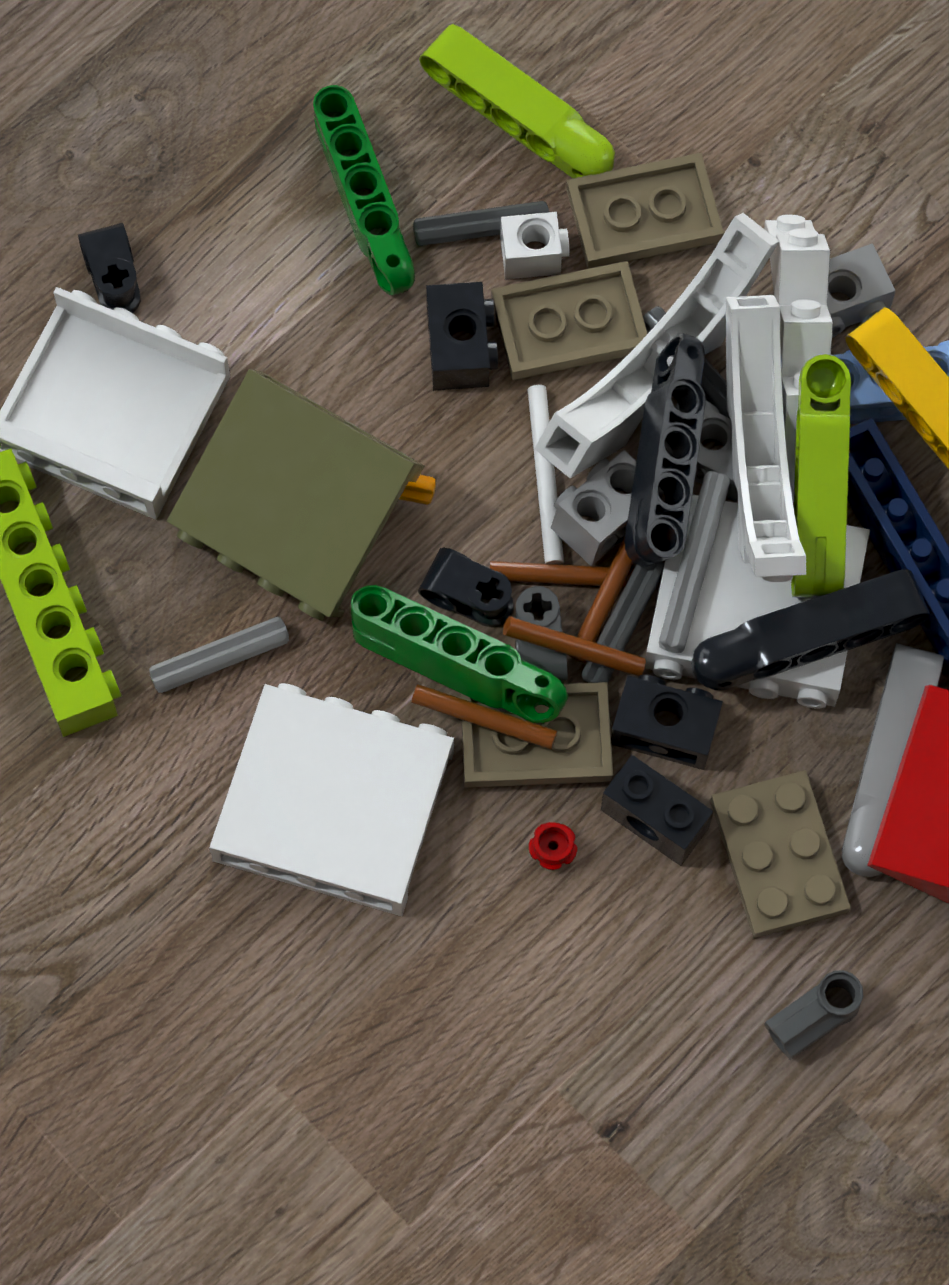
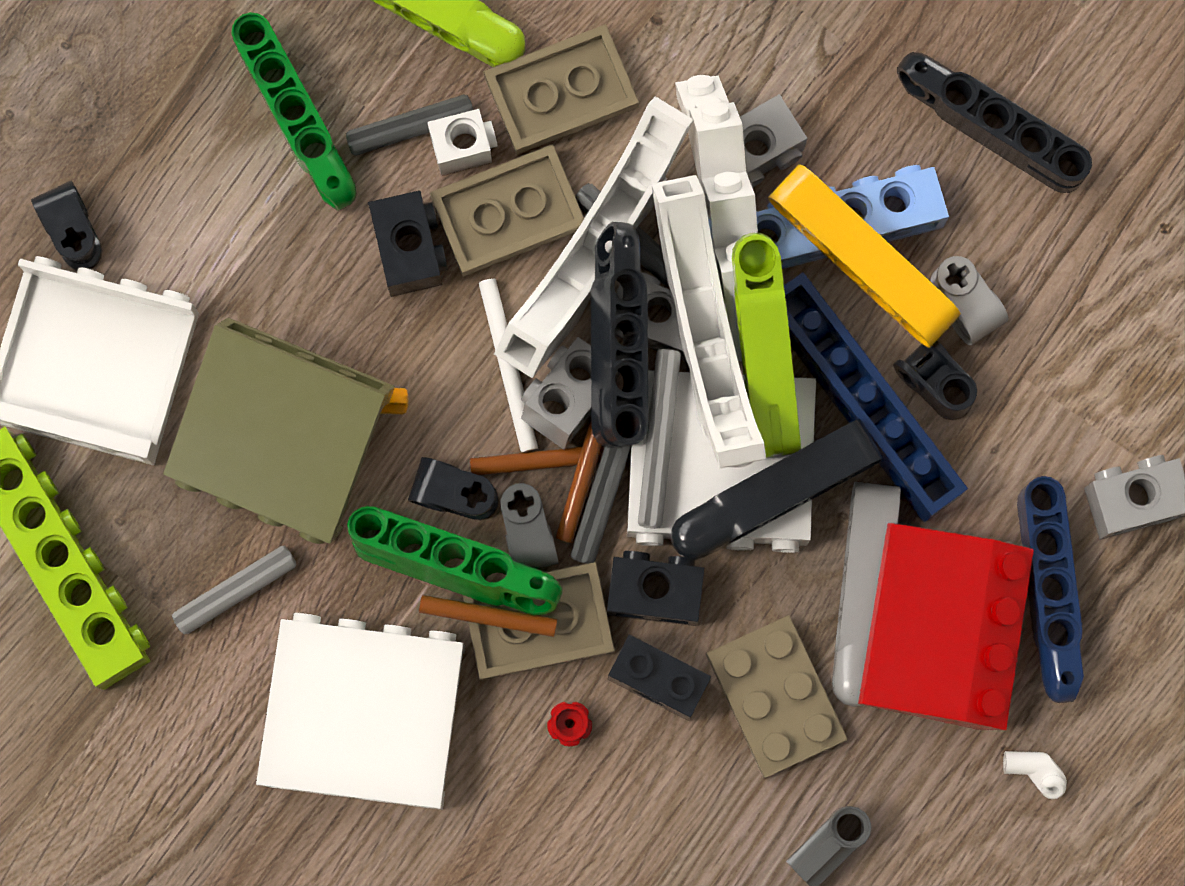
camera: 10 degrees left, 10 degrees up
(574, 646) = (560, 537): dark orange bar -> none

